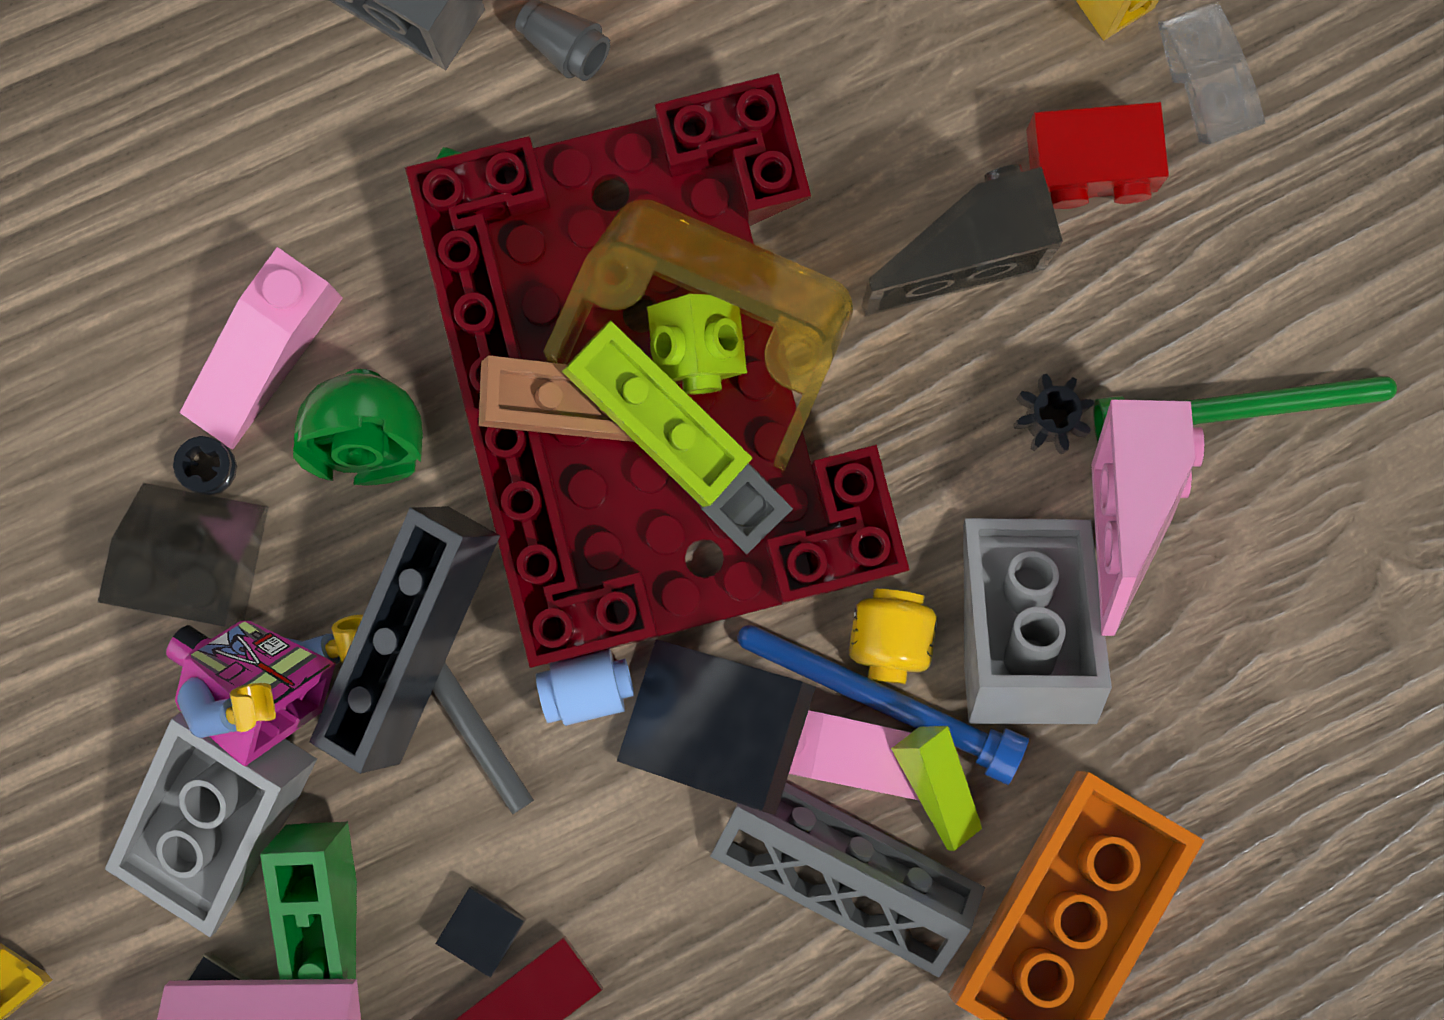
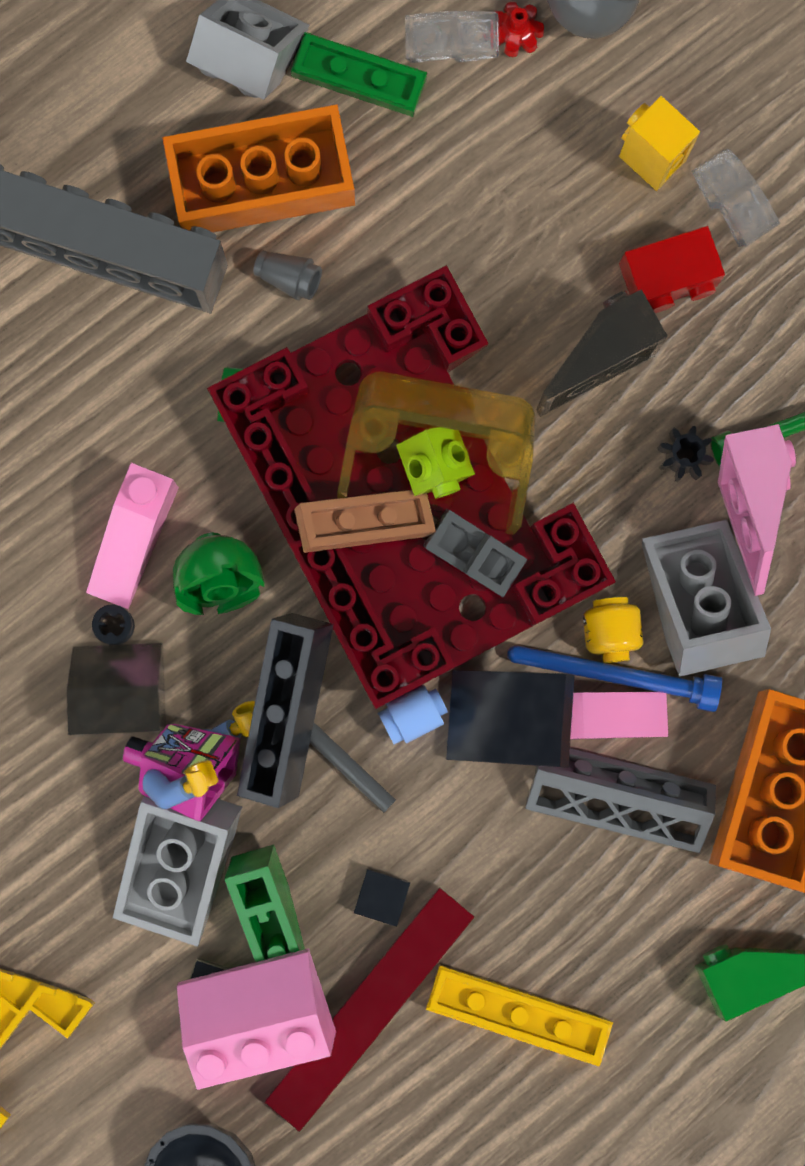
camera: 25 degrees left, 0 degrees up
(657, 414) = (422, 516): lime plate -> none
(939, 782) = (667, 718): lime piece -> none

